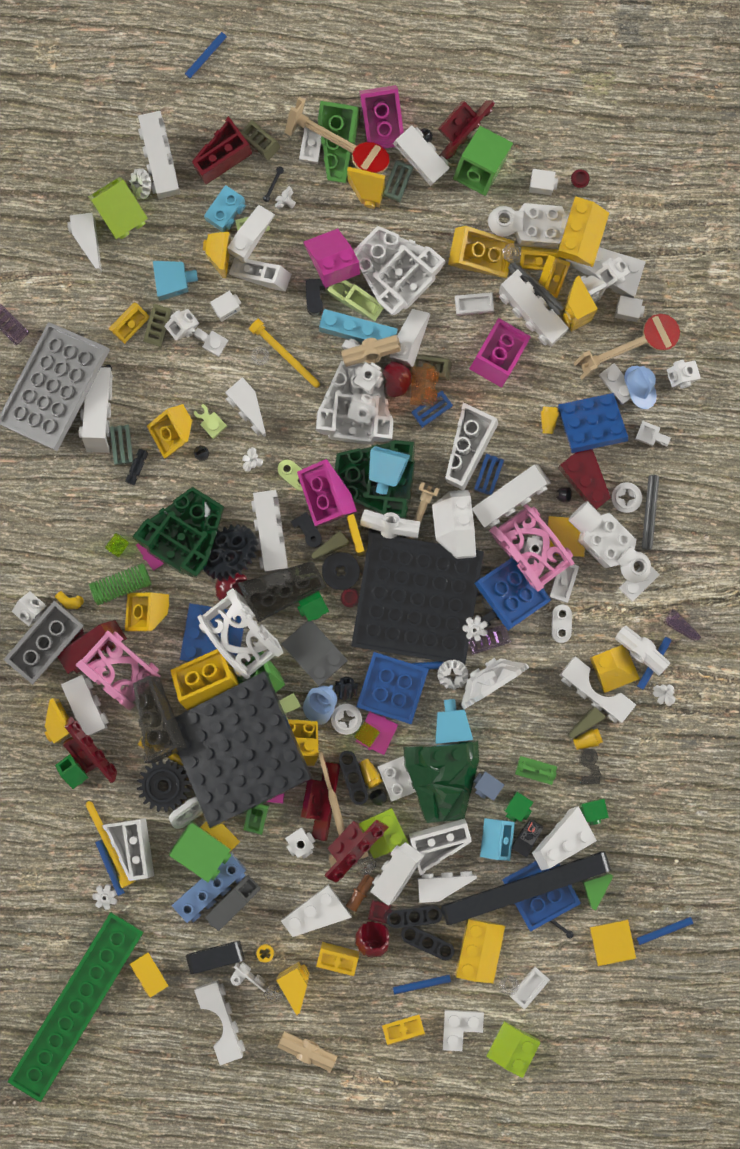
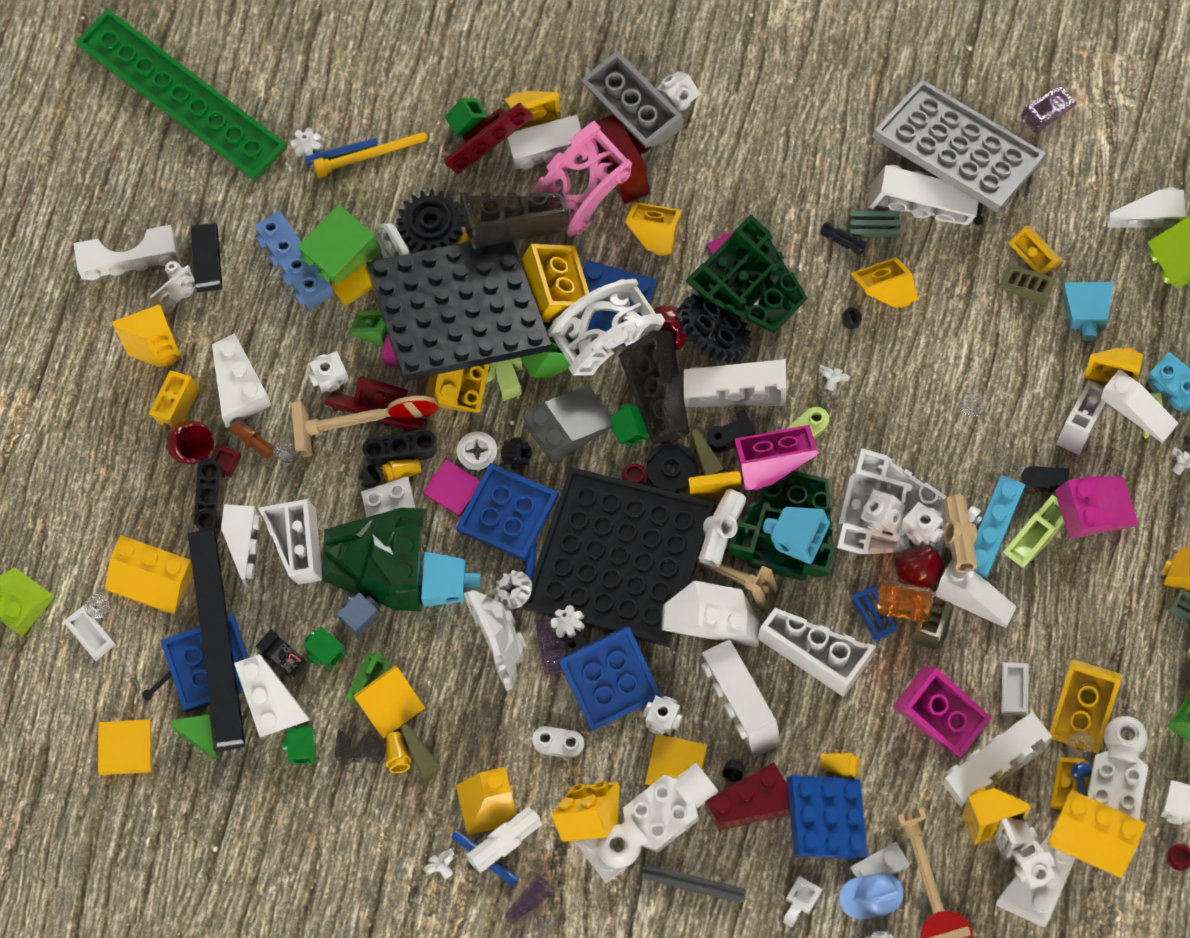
camera: 105 degrees right, 15 degrees down
(69, 603) = (679, 141): yellow arm -> none
(97, 593) = (694, 194): bright green piece -> none
(117, 545) = (744, 202): clear neon green slope -> none
(132, 847) = (359, 176): white wedge -> none
(148, 975) = (200, 177): yellow hinge -> none
(182, 324) = (1024, 310): white brick -> none
(211, 423) = (890, 335): yellowish green plate -> none
(213, 343) = (998, 349): white plate -> none
(226, 305) = (1044, 368): white brick -> none
(233, 903) = (269, 285): dark grey slope -> none
(245, 399) = (910, 380): white slope -> none
(258, 329) = (1010, 405): yellow piece -> none
(263, 947) = (200, 310): yellow bush -> none
(307, 1051) = (68, 350): tan piece -> none
(320, 704) = (502, 419): light blue piece -> none
(352, 846) = (309, 427): dark red bracket -> none
(367, 734) = (451, 473): clear neon green slope -> none
(392, 836) = (323, 477): lime slope -> none
(396, 268) = (1071, 586): white wedge -> none
(396, 873) = (266, 479): white brick -> none
(403, 1030) = (69, 467): yellow hinge -> none
(422, 984) = (121, 474): blue bar -> none
(436, 946) = (171, 524): black beam -> none
(458, 1022) = (62, 535): white plate -> none
(494, 459) = (779, 666): blue tile -> none
(497, 839) = (286, 613): medium azure brick -> none
(505, 535) = (688, 680): bright pink fence -> none
(533, 250) = (1080, 771): none -> blue hand
(539, 290) = (1029, 767): dark grey axle -> none
(553, 751) = (389, 701): none -> yellow tile
(554, 274) = (1041, 796): yellow slope -> none
(564, 583) = (614, 751): white plate -> none
(577, 675) = (484, 750): white arch -> none
(614, 592) = (587, 811): none -> yellow slope
(629, 308) = (984, 895): white brick -> none
(633, 491) = (711, 843): white gear -> none
(664, 931) = (126, 818): blue bar -> none

